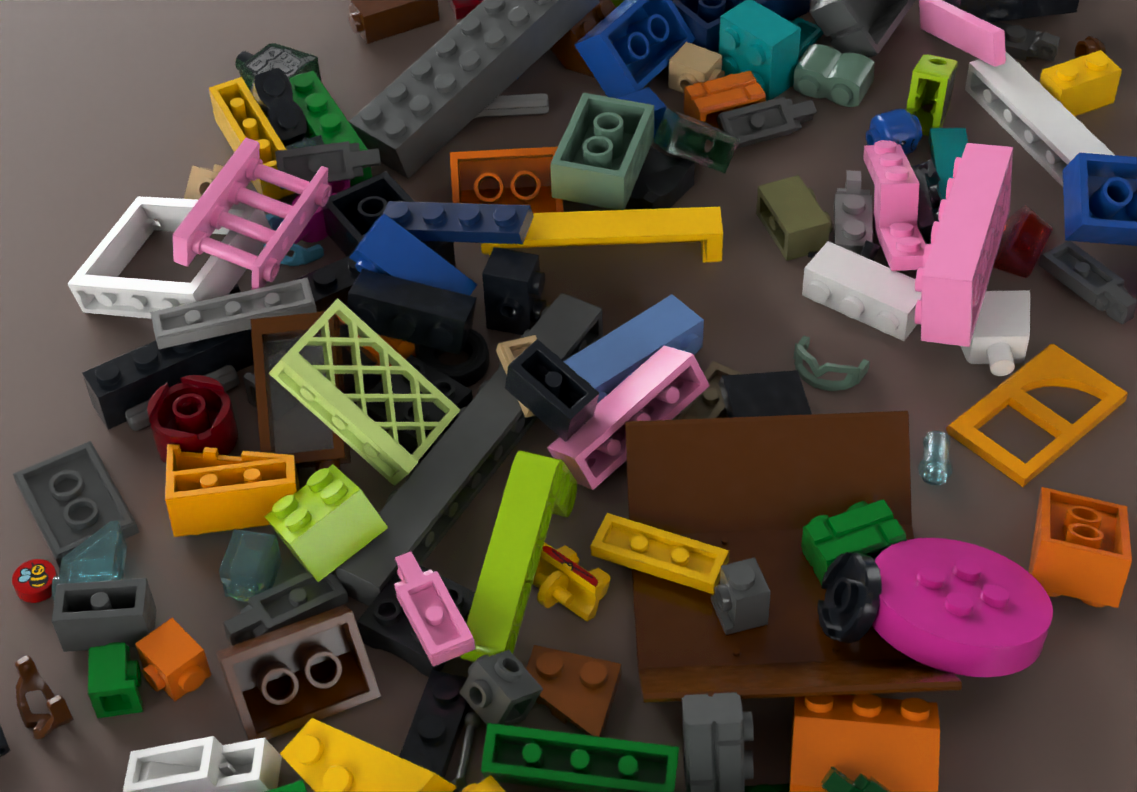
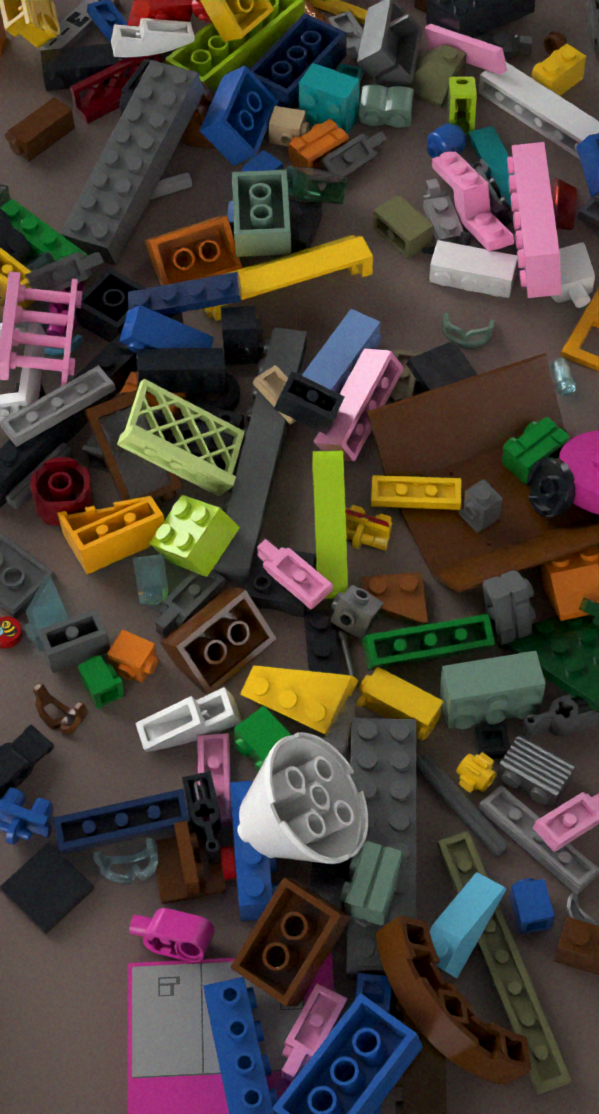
camera: 20 degrees left, 10 degrees up
(903, 51) = (433, 72): none -> olive slope

